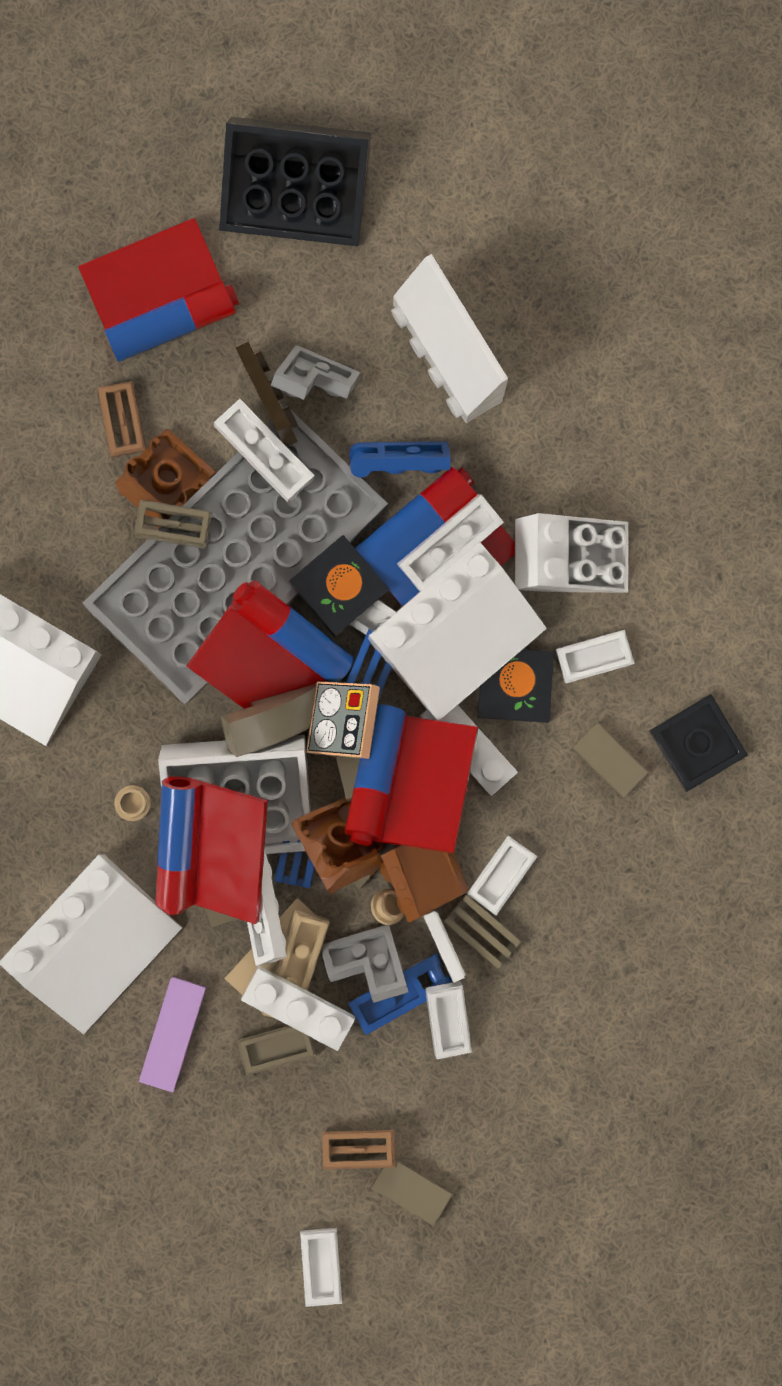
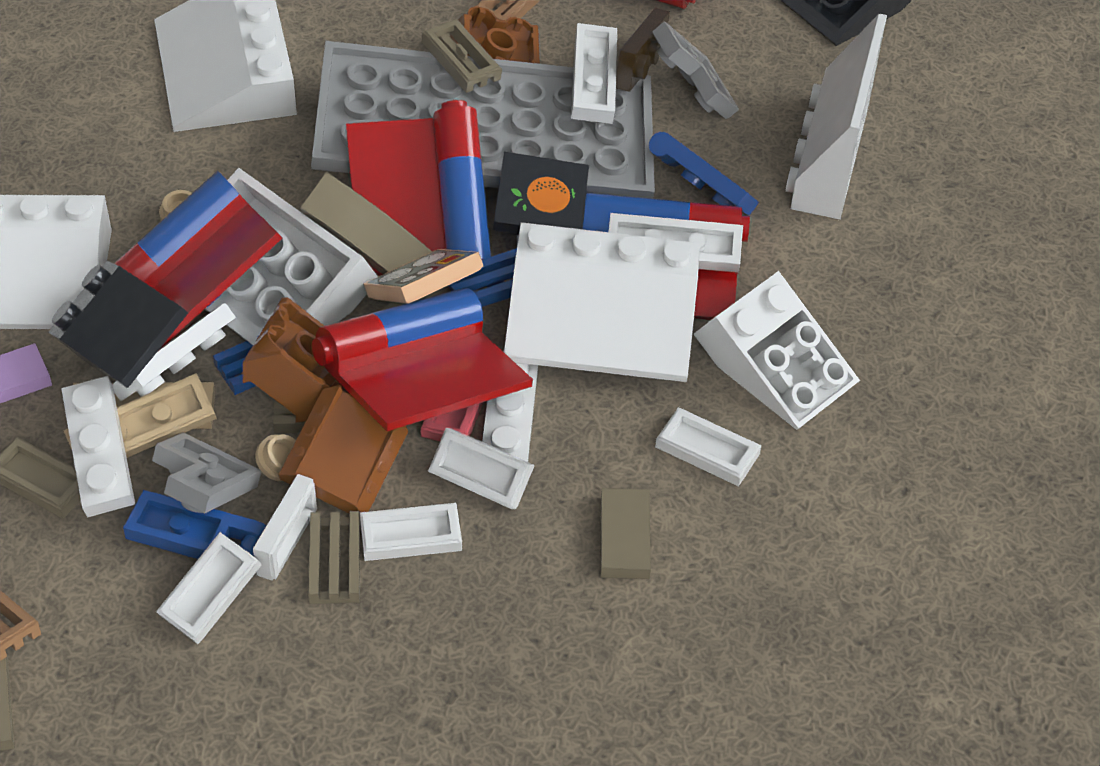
camera: 45 degrees right, 35 degrees down
(229, 935) = (116, 322): none -> black slope
(500, 802) = (481, 468): none -> white tile
(519, 689) = (607, 409): black tile -> none
(698, 743) = (729, 595): black tile -> none

